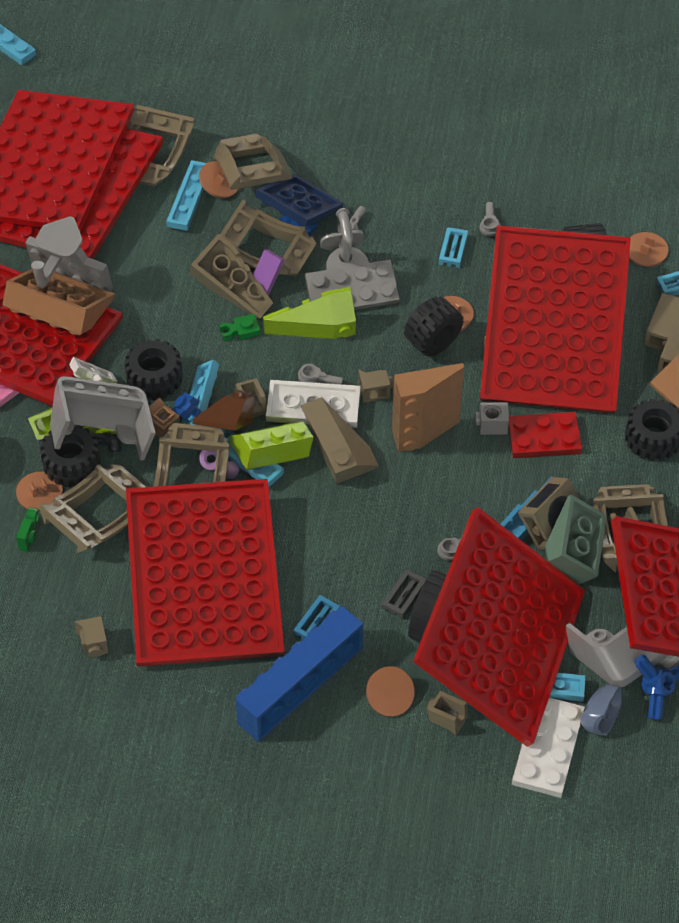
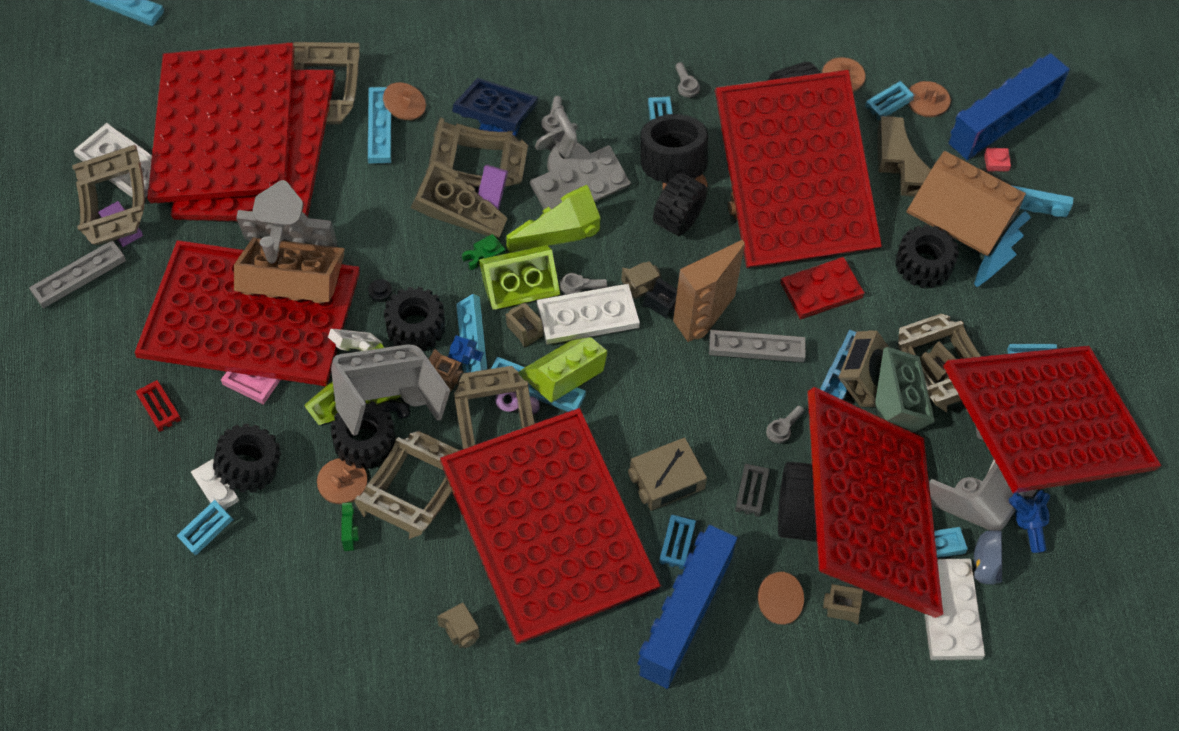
camera: 20 degrees left, 5 degrees up
(133, 336) = (380, 290): none -> black plate
(229, 412) = (512, 348): reddish brown slope -> none
(253, 174) = (405, 65): dark tan wedge -> none
(263, 356) = (520, 277): none -> lime slope
(329, 559) = (667, 474): none -> dark tan brick
(340, 445) = (632, 351): dark tan wedge -> none
(384, 407) = (661, 299): none -> black window
(450, 273) = (673, 146): none -> black tyre
(459, 470) = (757, 346): none -> light grey plate
(492, 418) = (775, 278): light grey brick -> none

